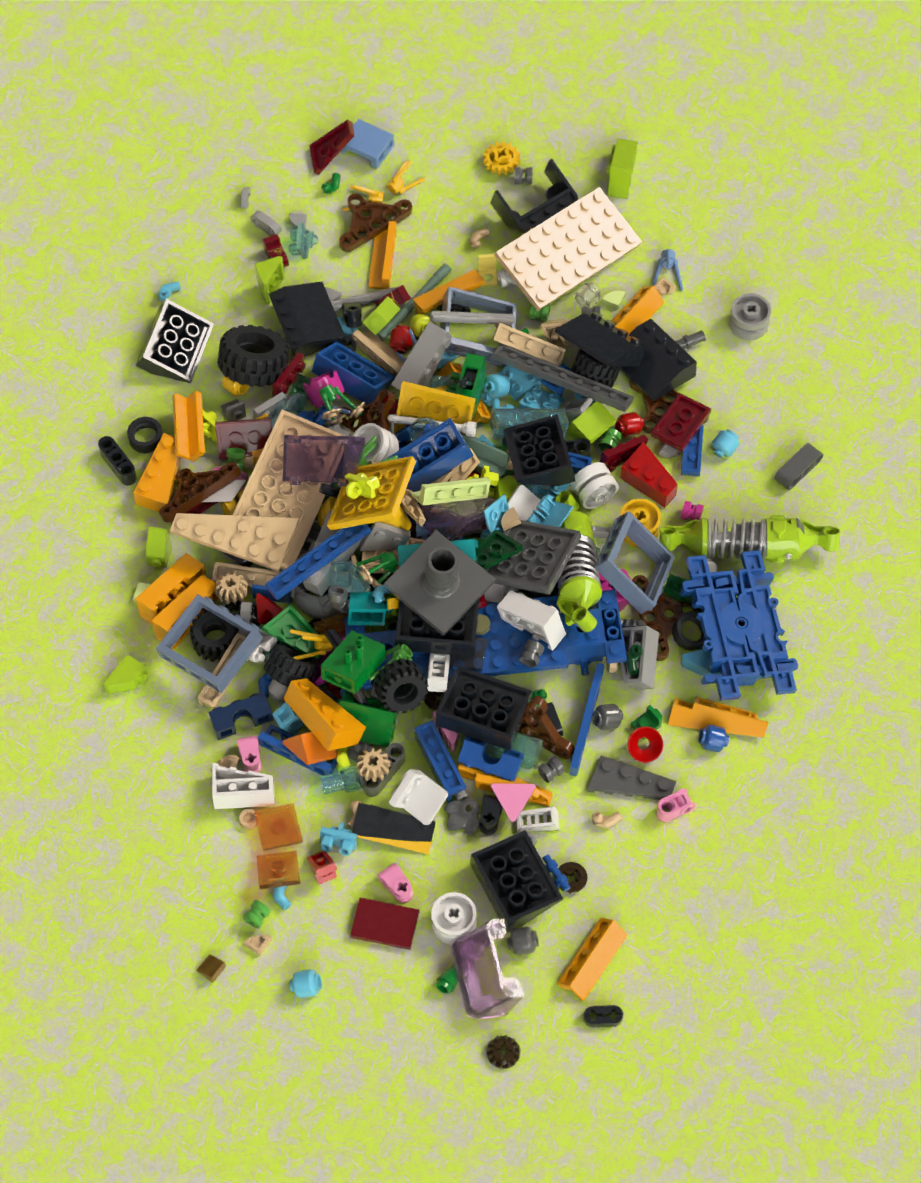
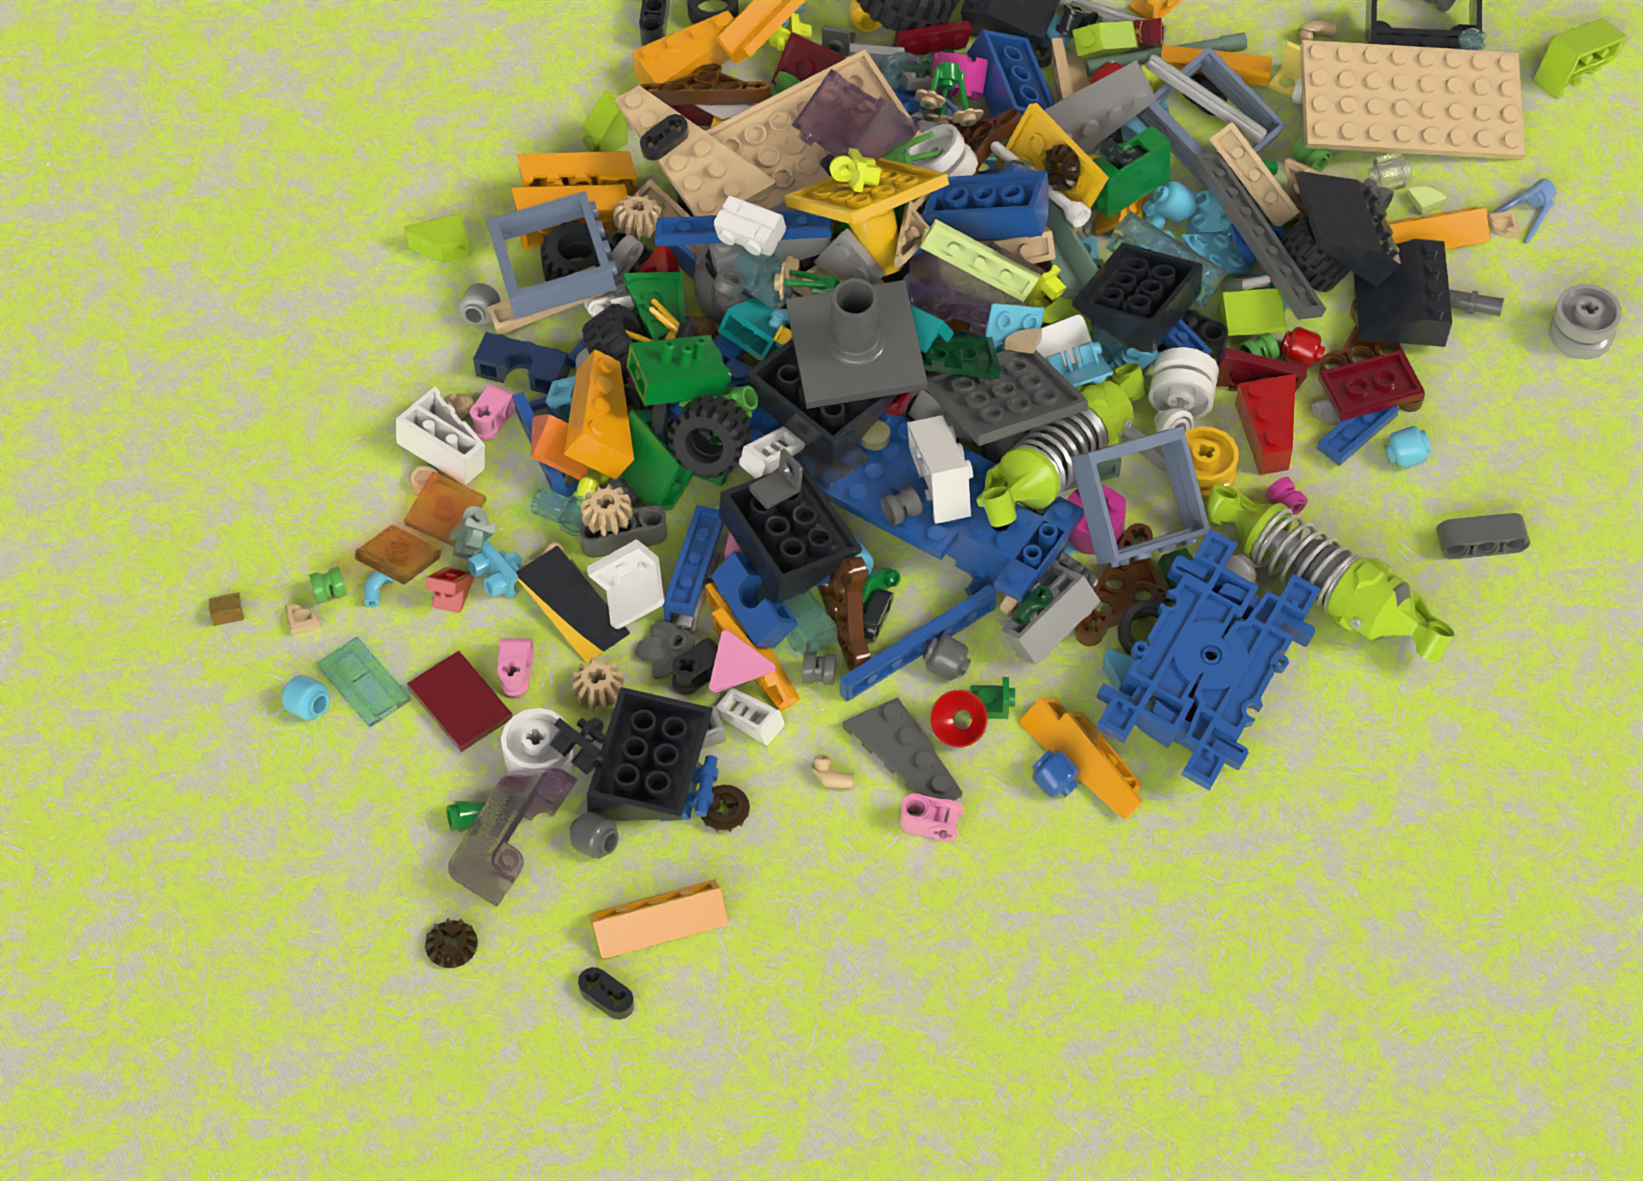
camera: 40 degrees right, 5 degrees down
(185, 698) = (475, 303): none -> light grey head
(224, 534) = (664, 137): none -> black beam
(307, 409) = (910, 81): none -> light grey tile
(312, 830) = (471, 532): none -> sand green hips
(323, 951) = (363, 681): none -> clear light blue piece
(328, 556) = (749, 226): none -> white brick
(440, 402) = (1070, 167): none -> dark brown gear
(449, 868) = (597, 683): none -> tan gear
(463, 686) = (779, 484): none -> dark grey bracket
(467, 476) = (1015, 257): none -> clear smoke piece
(494, 901) = (568, 737): none -> black hips
(573, 195) = (1472, 39): none -> clear light blue plate
(604, 512) = (1172, 419): none -> white brick

